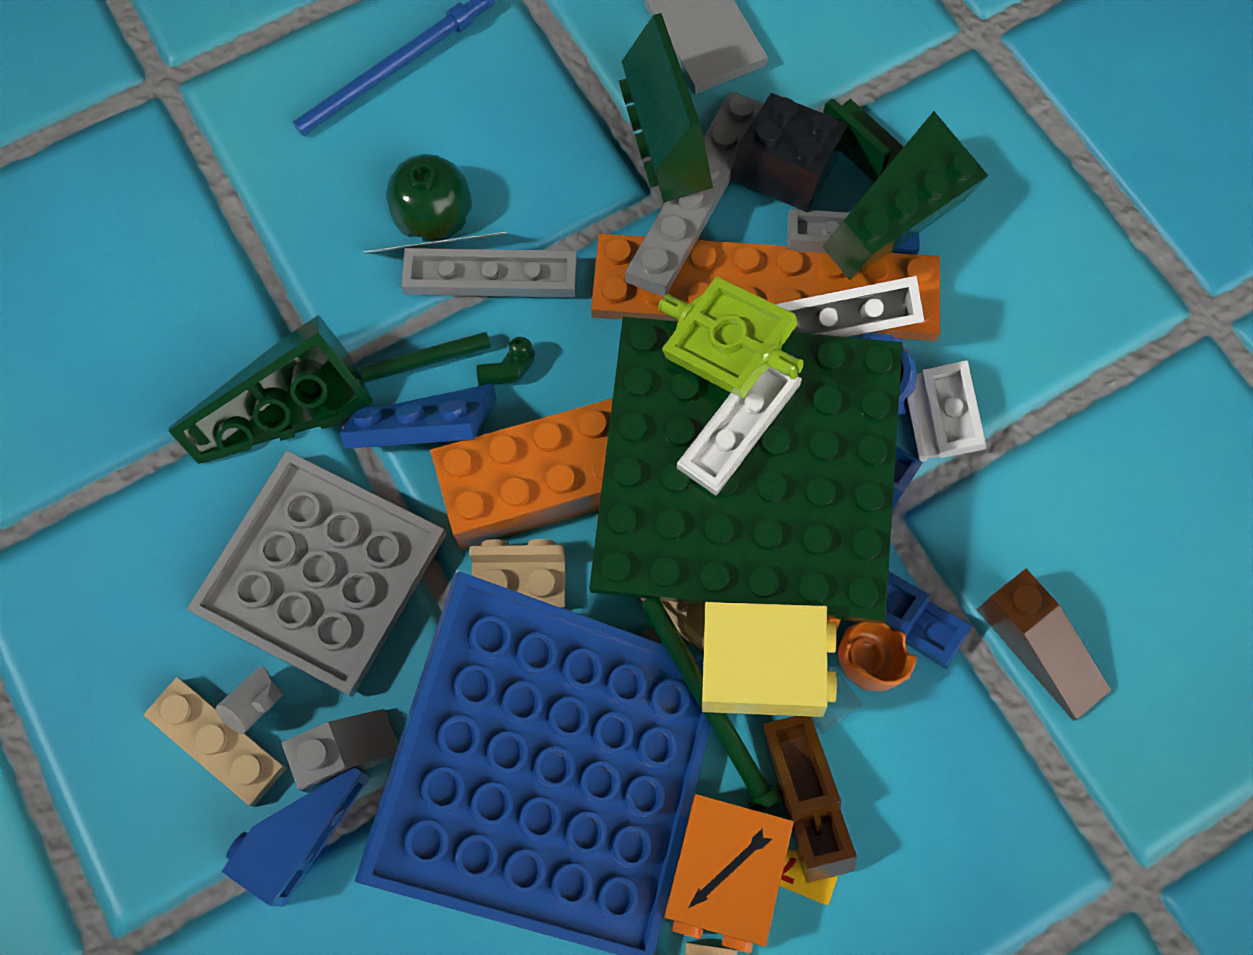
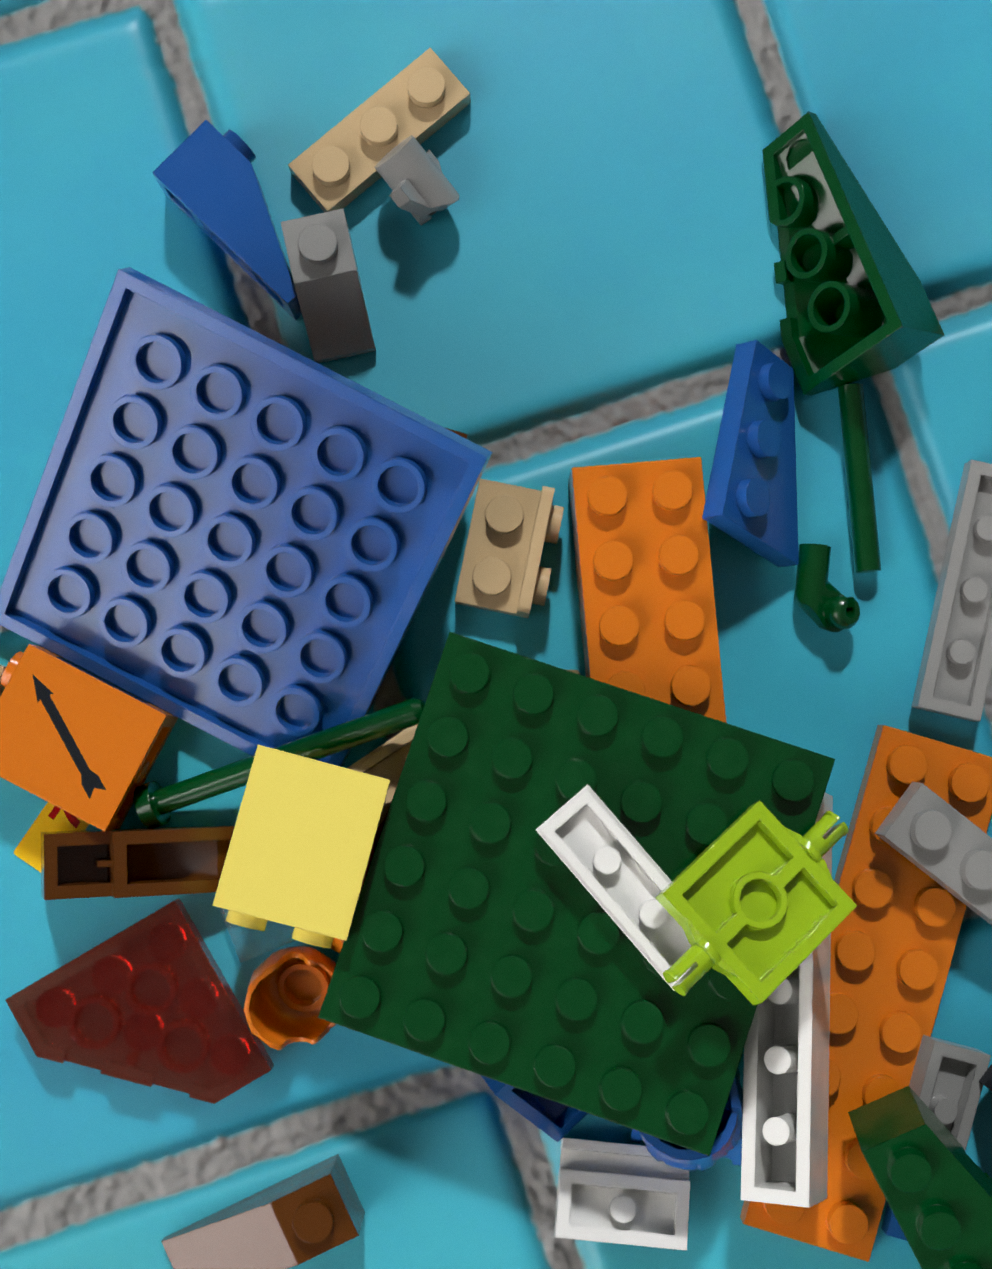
camera: 100 degrees right, 15 degrees up
(318, 573) = (572, 288): light grey plate -> none
(917, 769) = (146, 1012): none -> clear red plate
(926, 625) = (331, 1076): blue slope -> none

